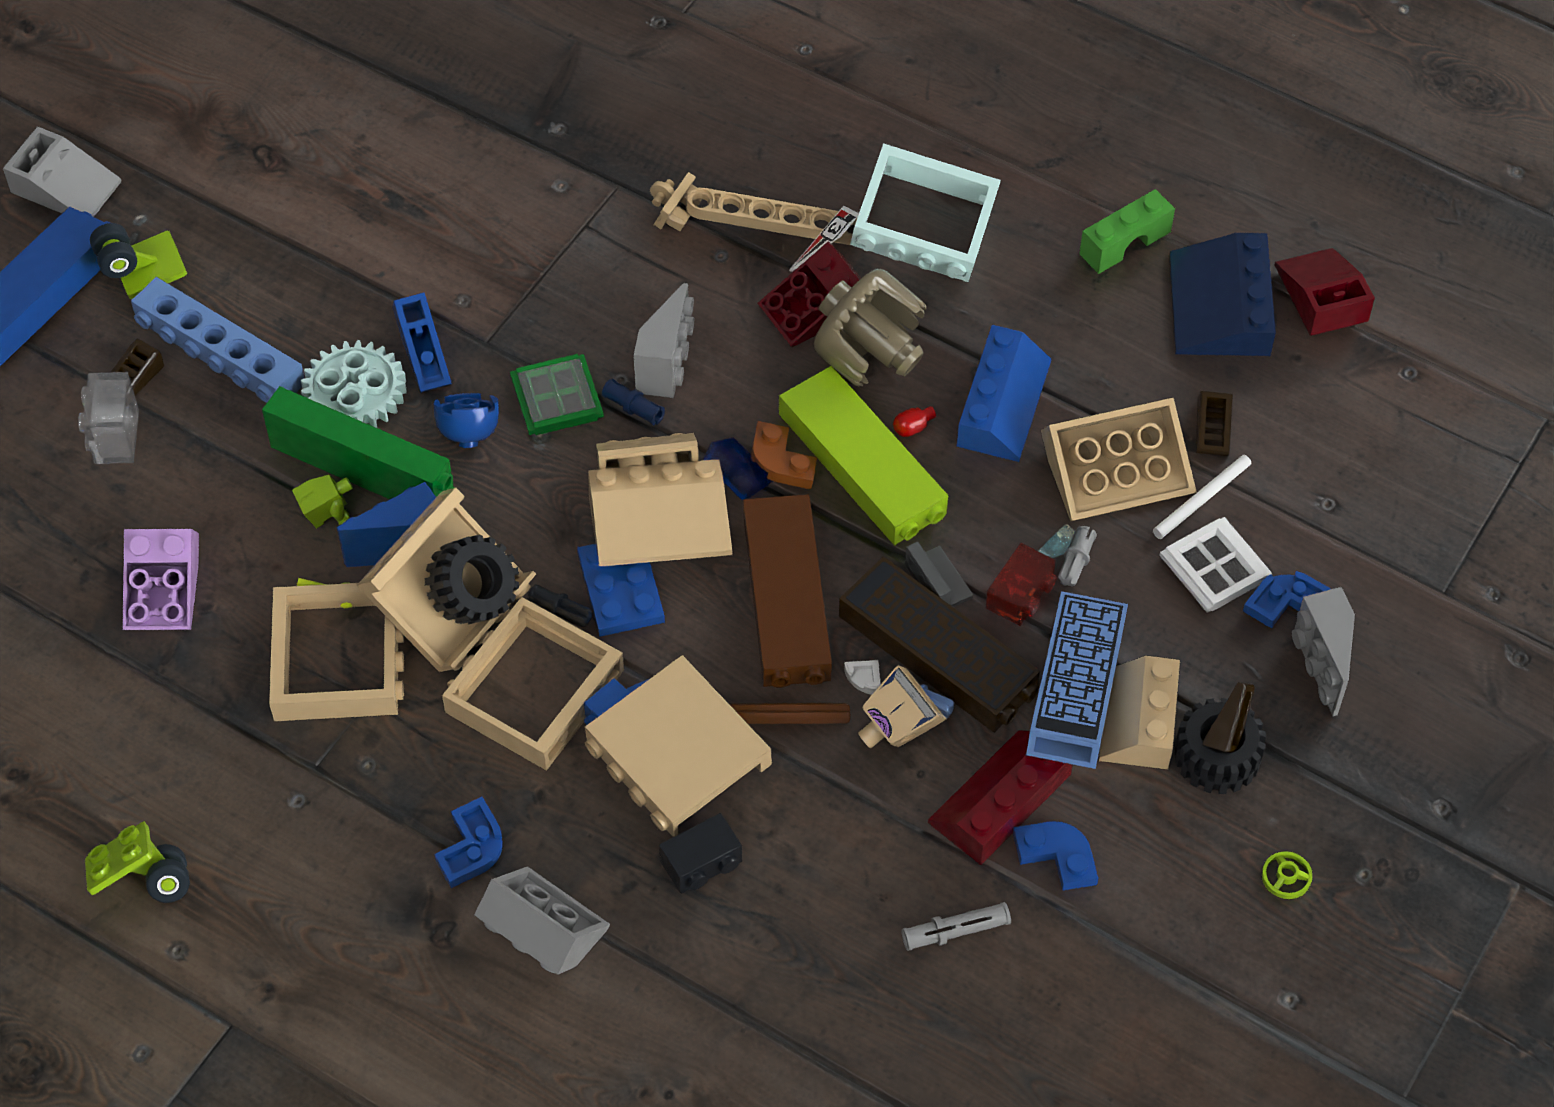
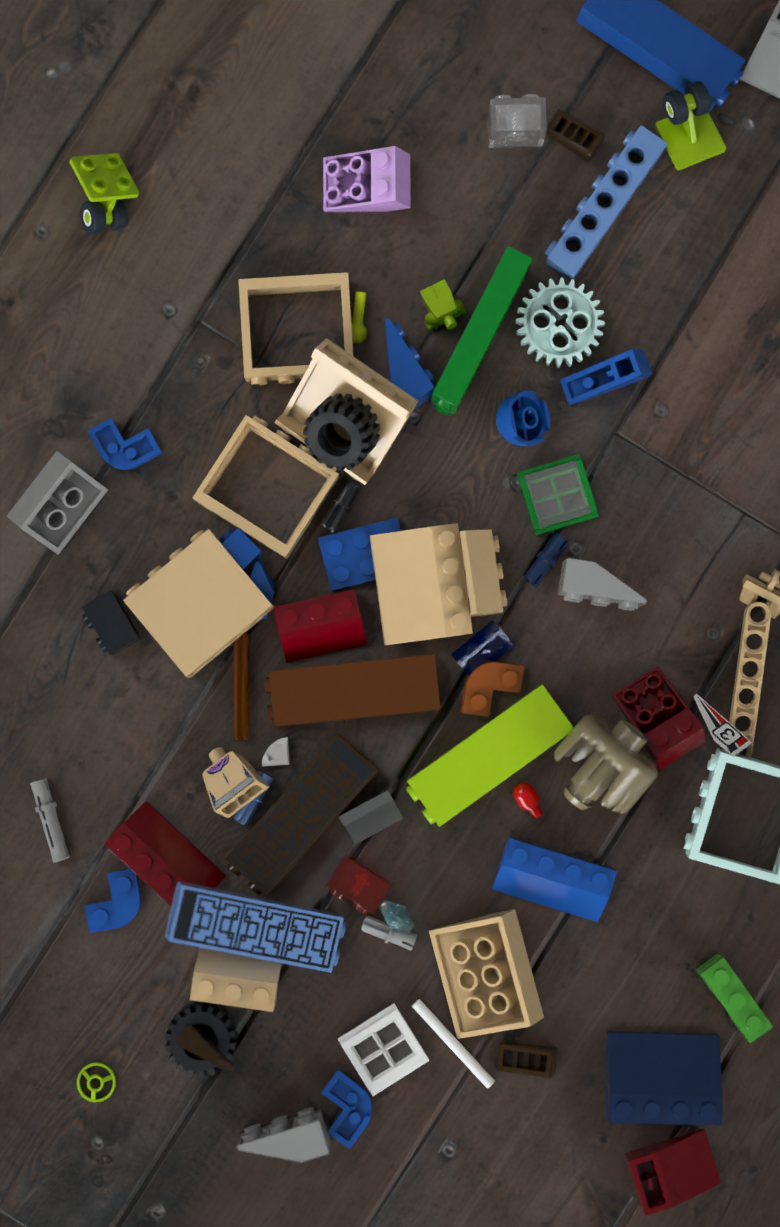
camera: 90 degrees right, 30 degrees up
(706, 623) = (320, 625): none -> dark red slope

